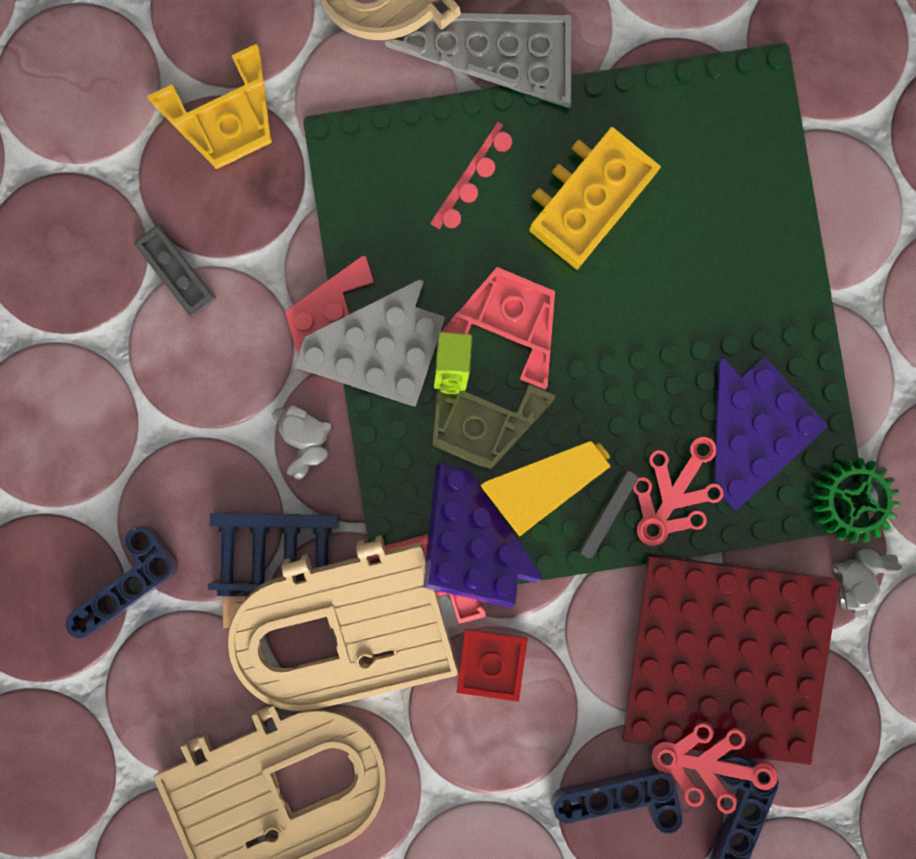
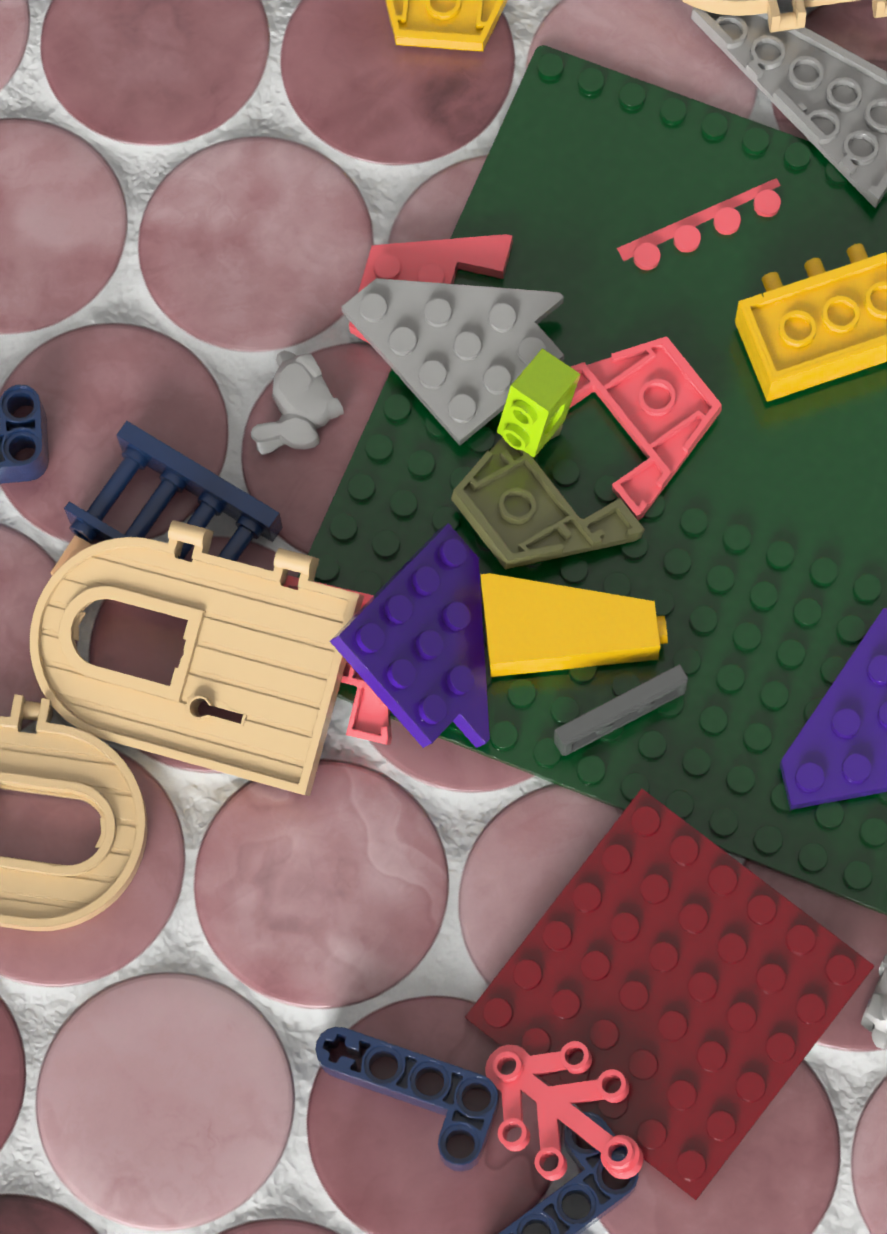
camera: 45 degrees right, 15 degrees down
(174, 271) = (270, 131): dark grey tile -> none
(492, 665) = (355, 817): red plate -> none
(673, 496) = (721, 738): coral plant -> none

